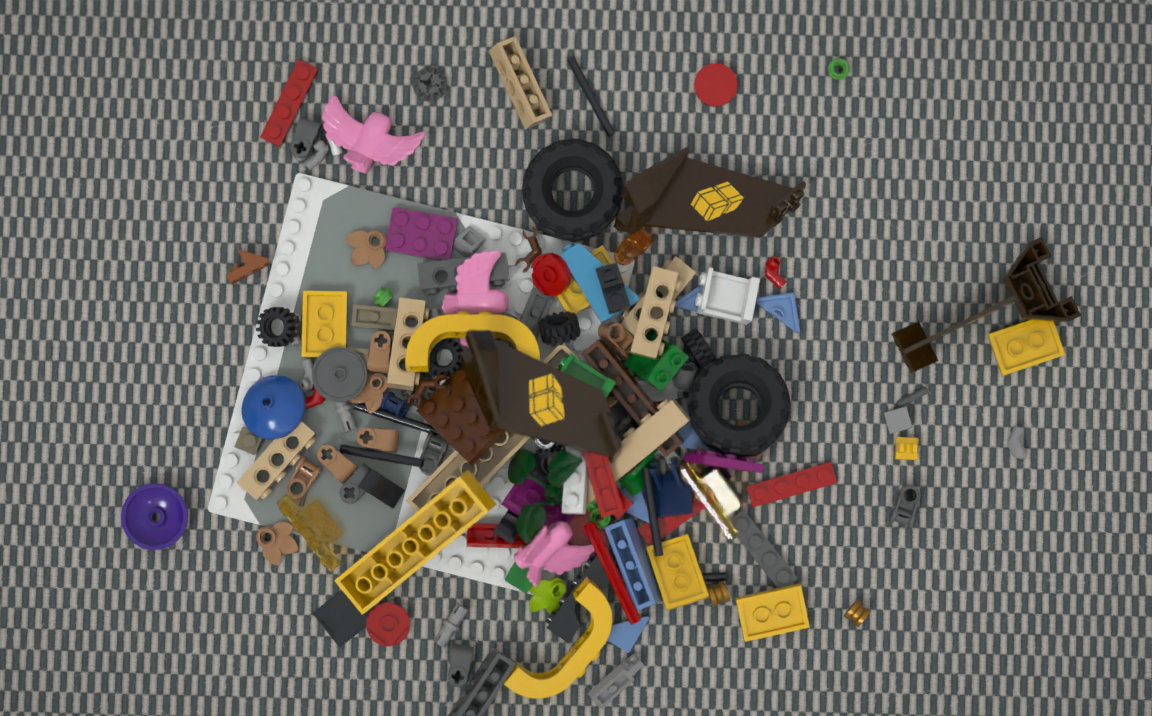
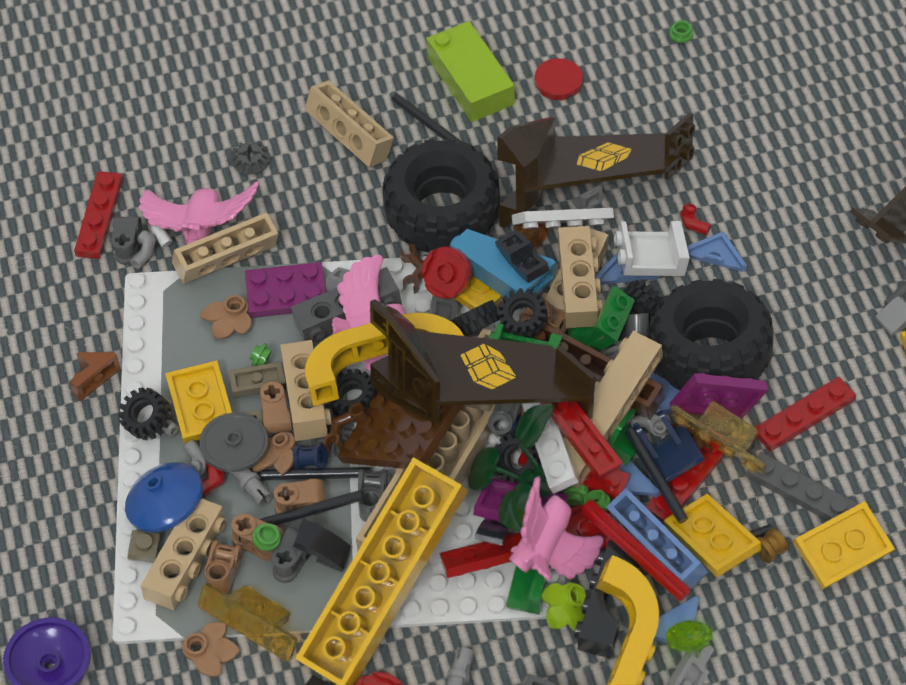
camera: 15 degrees left, 30 degrees down
(340, 473) = (266, 537): none -> bright green plate
(381, 183) = (224, 248): none -> tan brick
(581, 348) = (518, 301): none -> black tyre
(622, 646) = (678, 636): none -> clear neon green gear
(641, 56) = (470, 71): none -> lime brick
(664, 246) = (554, 218): none -> white plate

